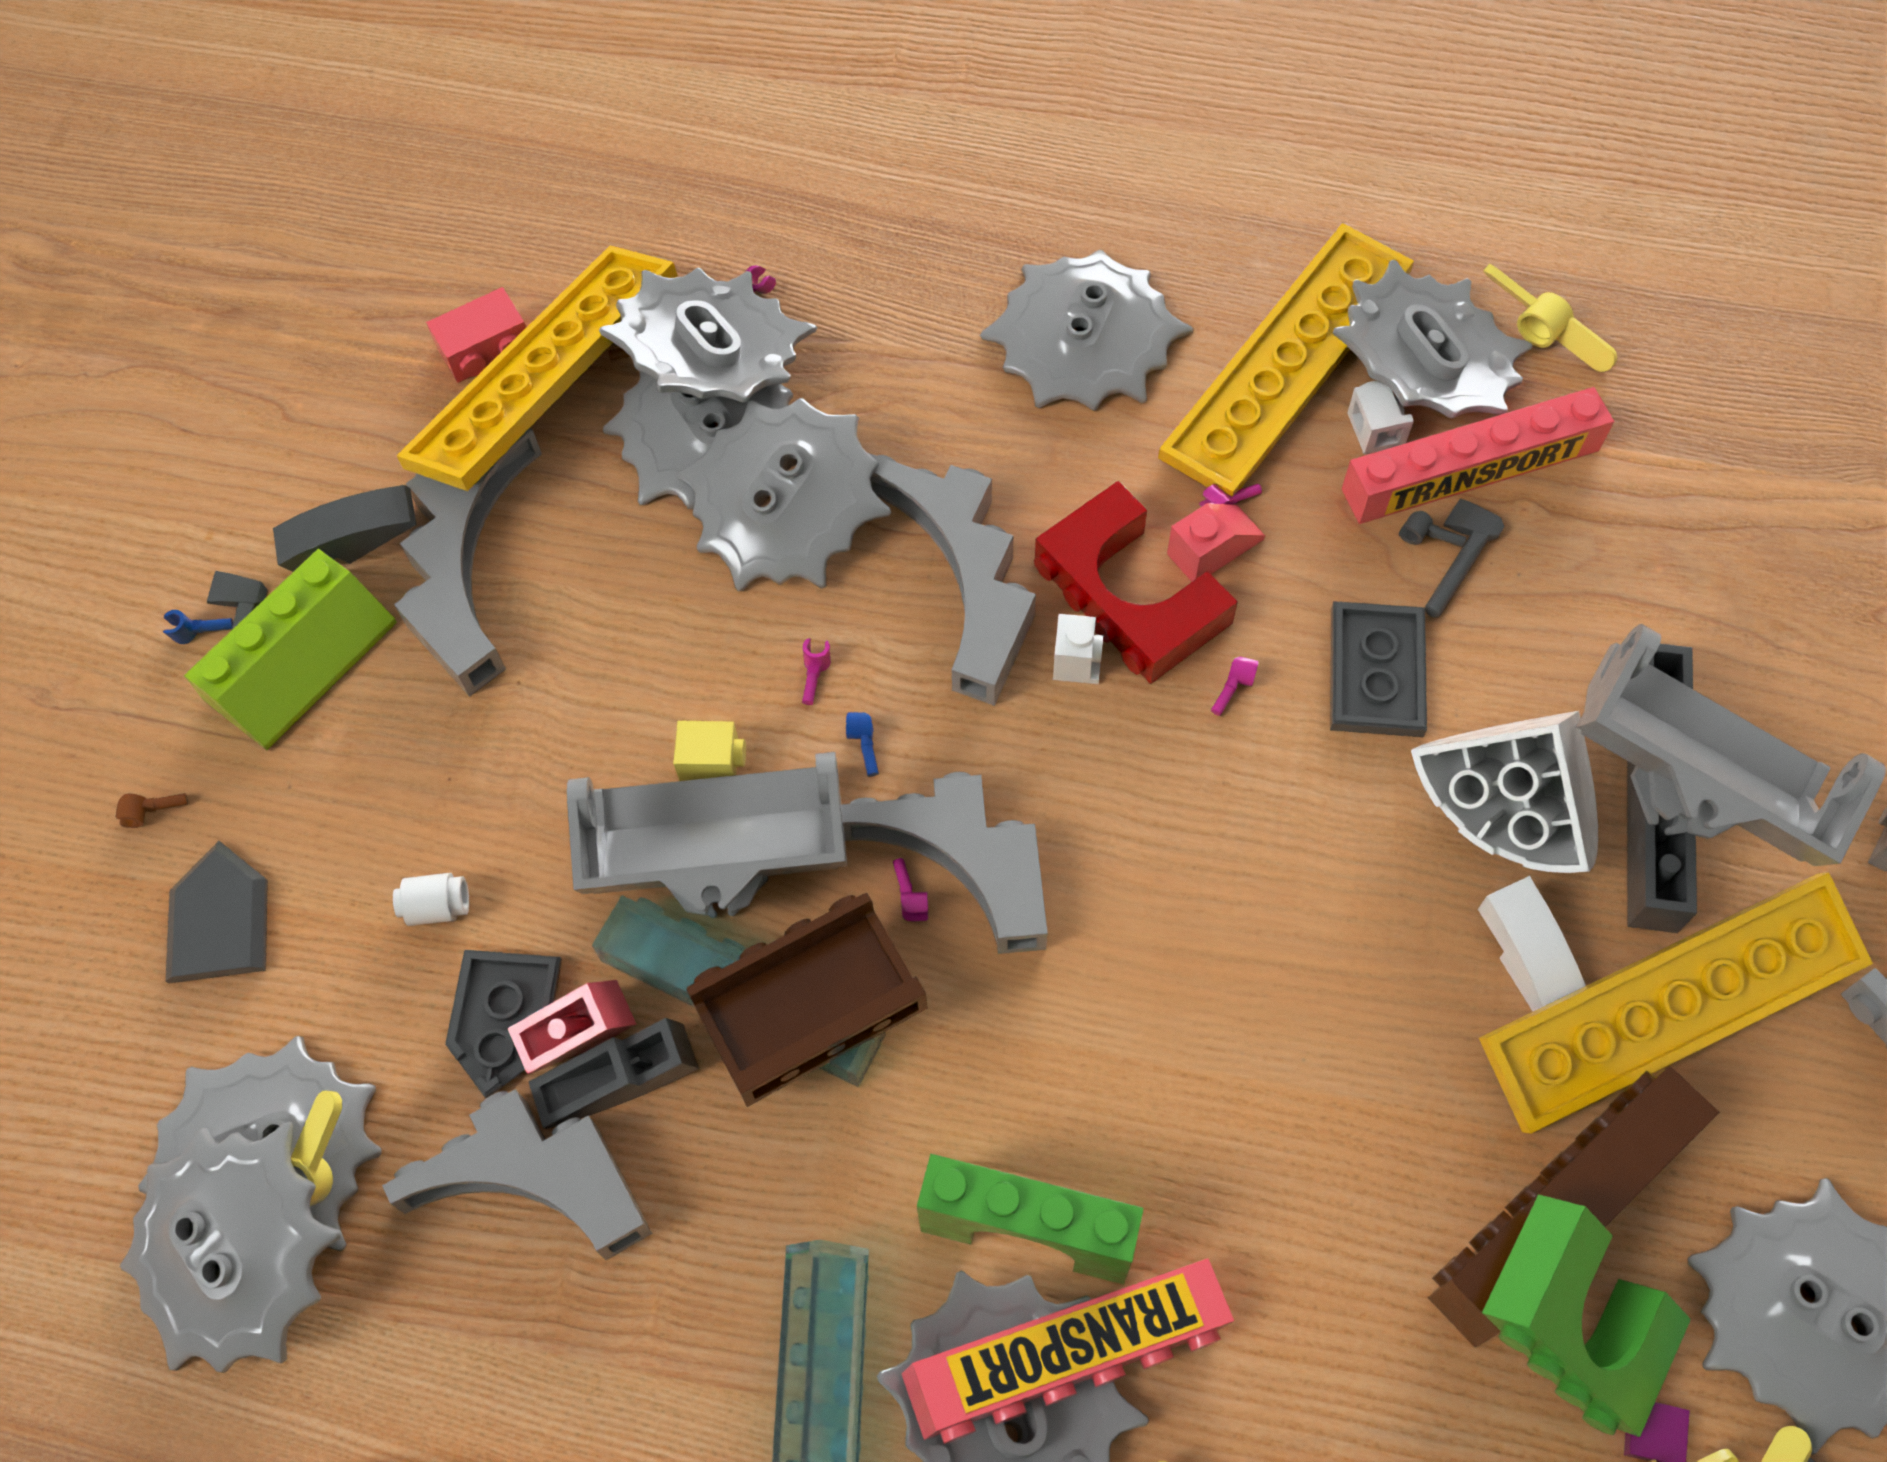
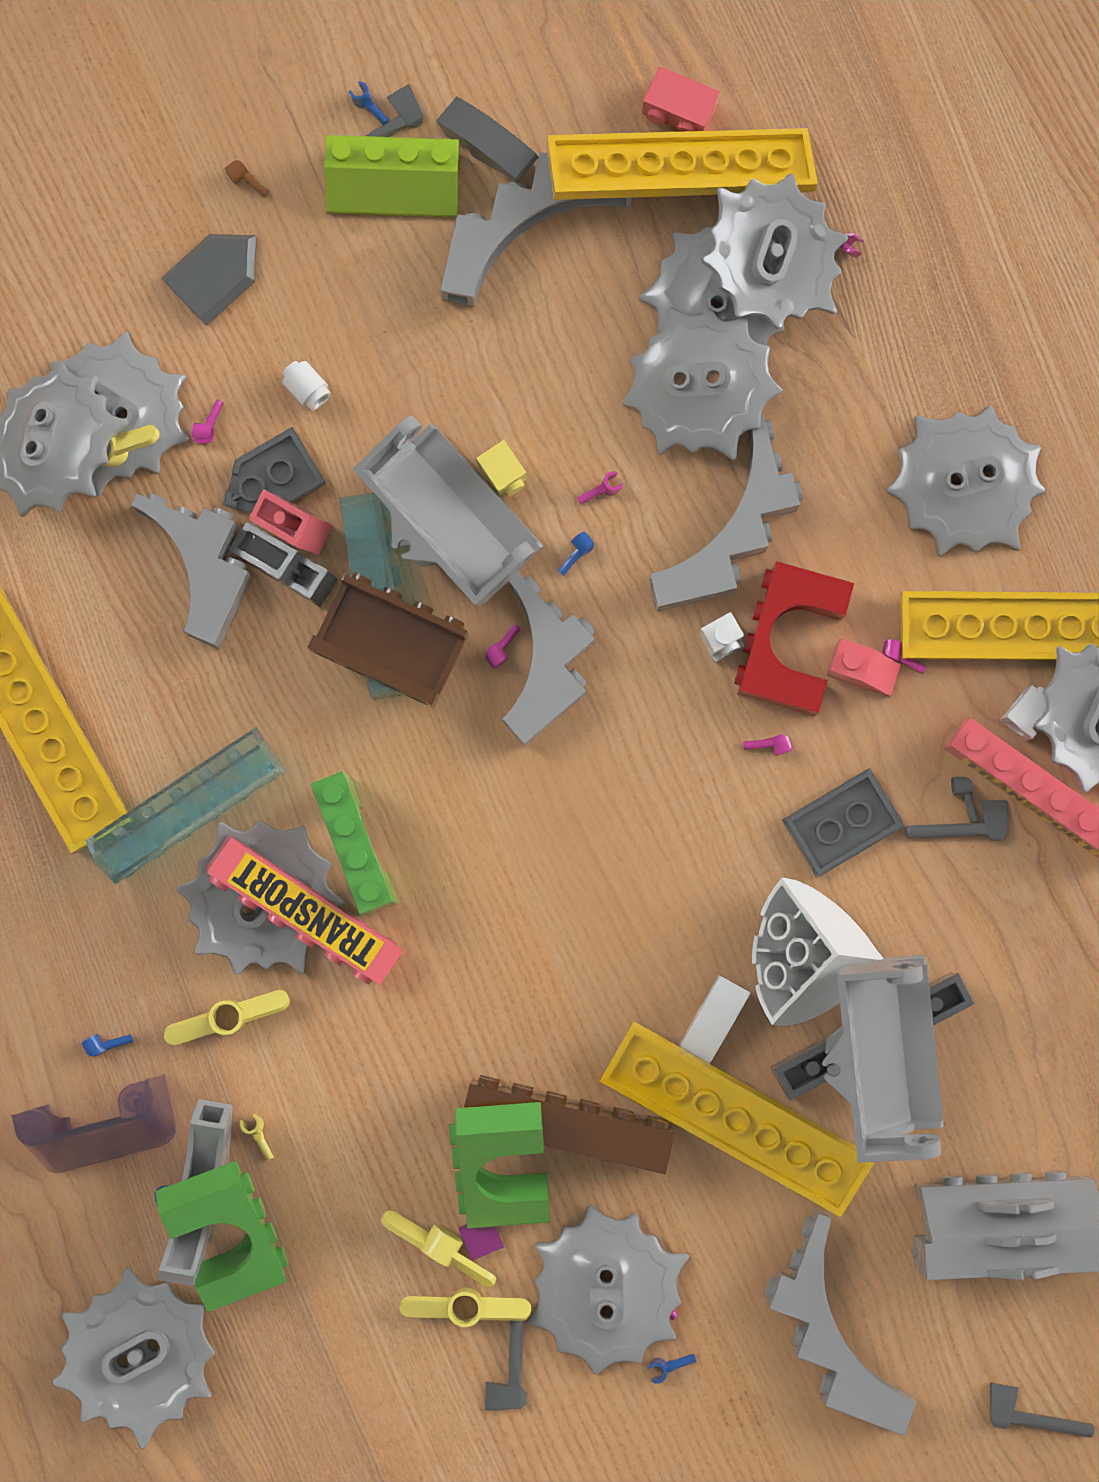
camera: 55 degrees right, 20 degrees up
(381, 1059) = (205, 432): none -> dark pink hand

